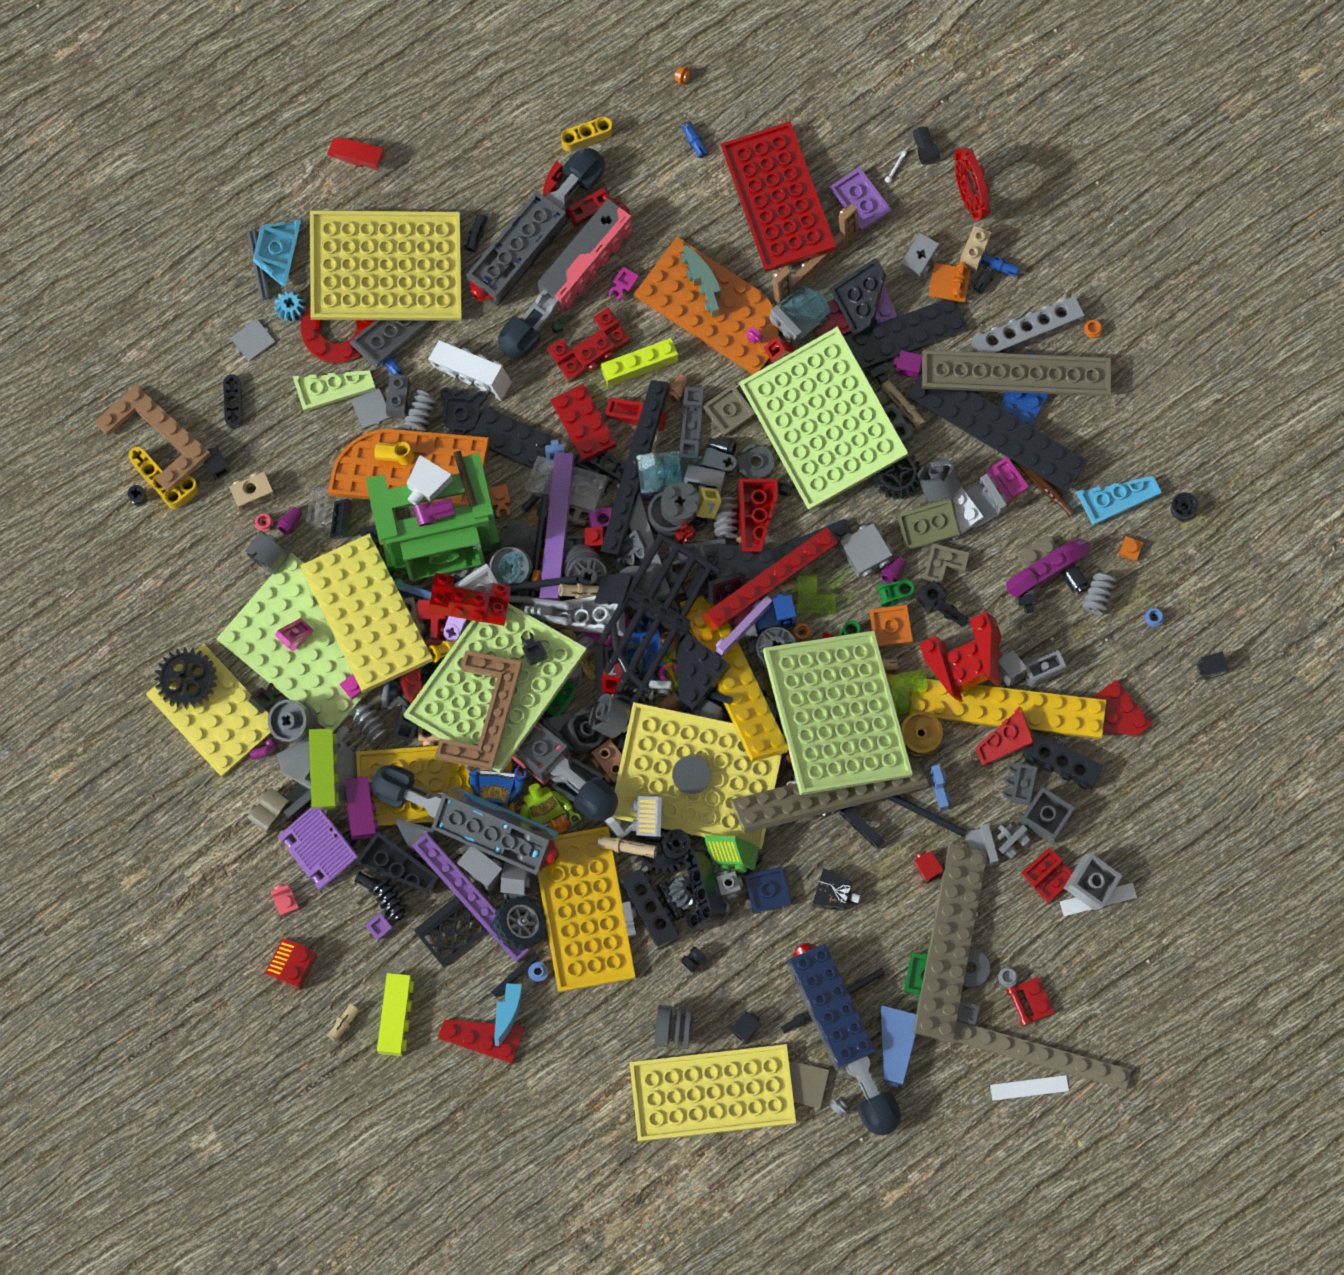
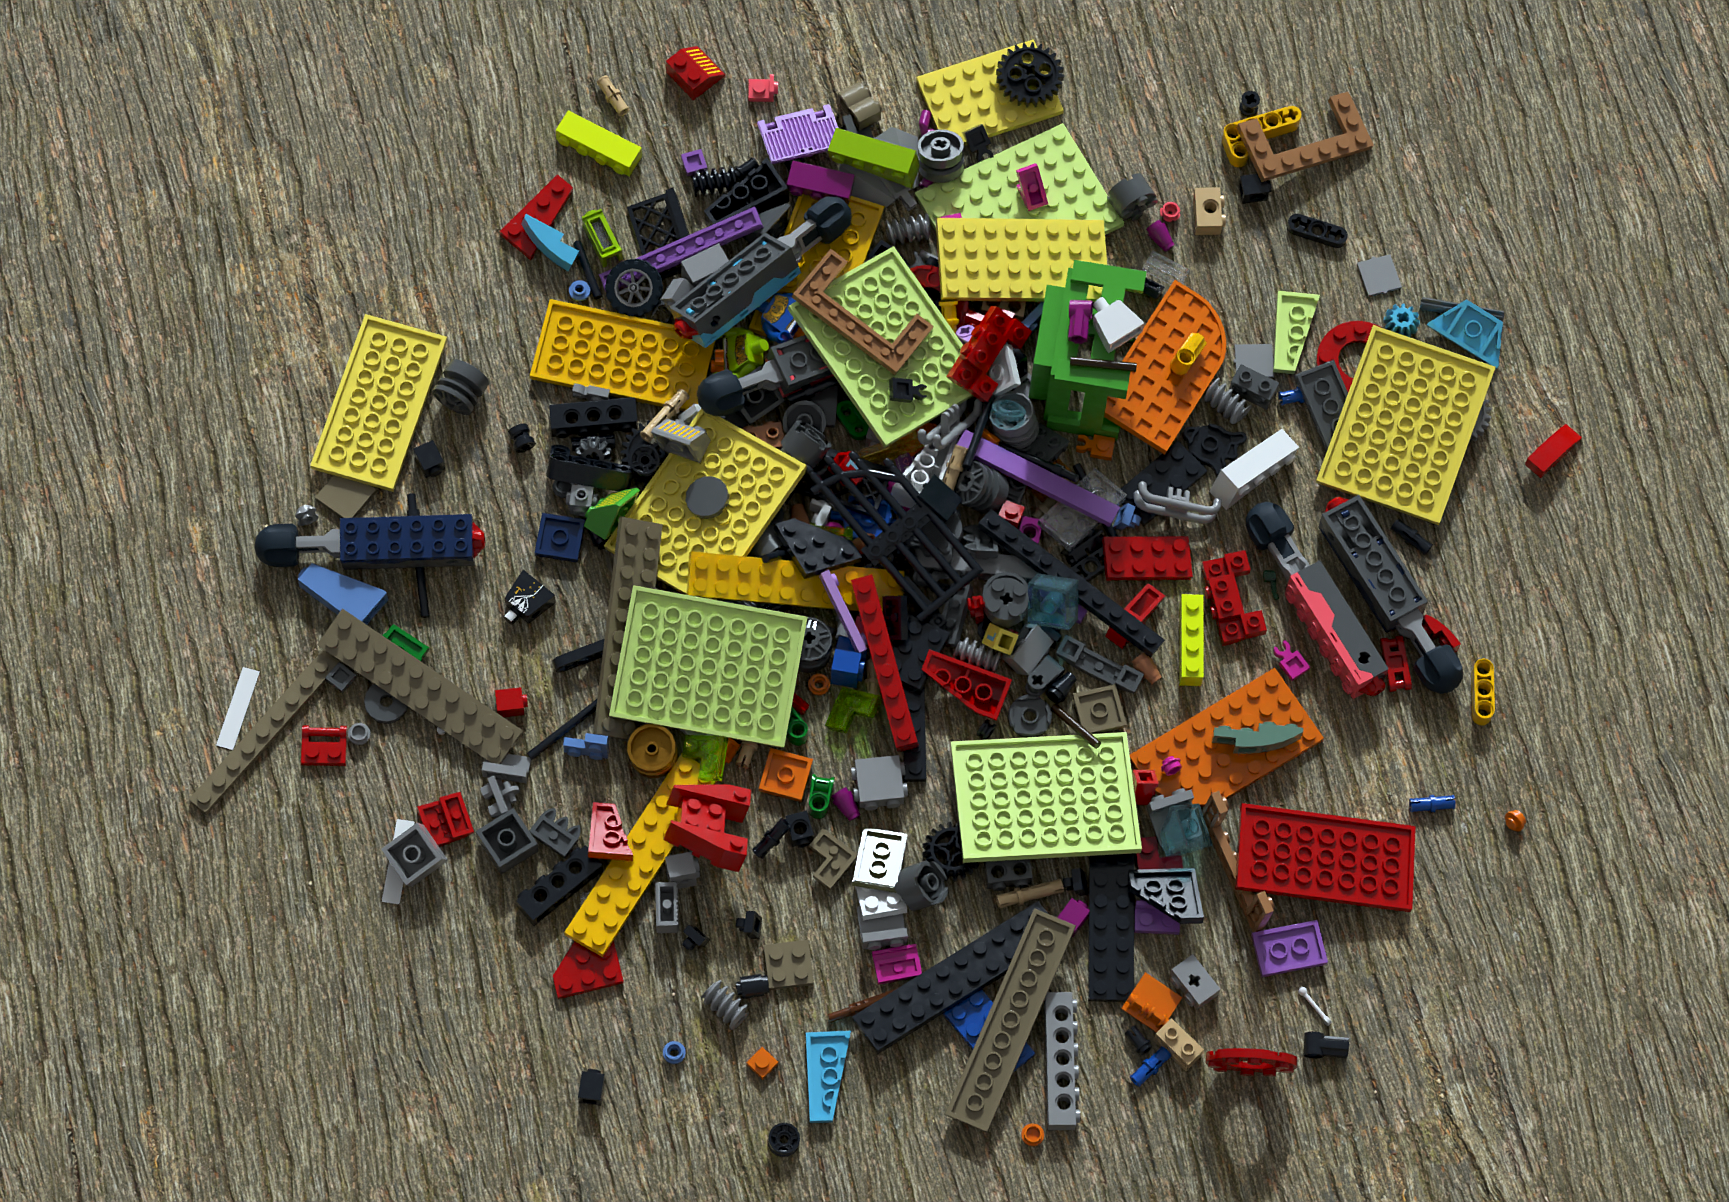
camera: 105 degrees right, 5 degrees down
(482, 973) = (601, 236): none -> lime window
(529, 415) = (1175, 505): none -> light grey piece
(751, 421) = (1078, 728): none -> dark brown bar
(1048, 567) = (776, 958): magenta brick -> none
(1056, 639) = (694, 938): none -> black tile

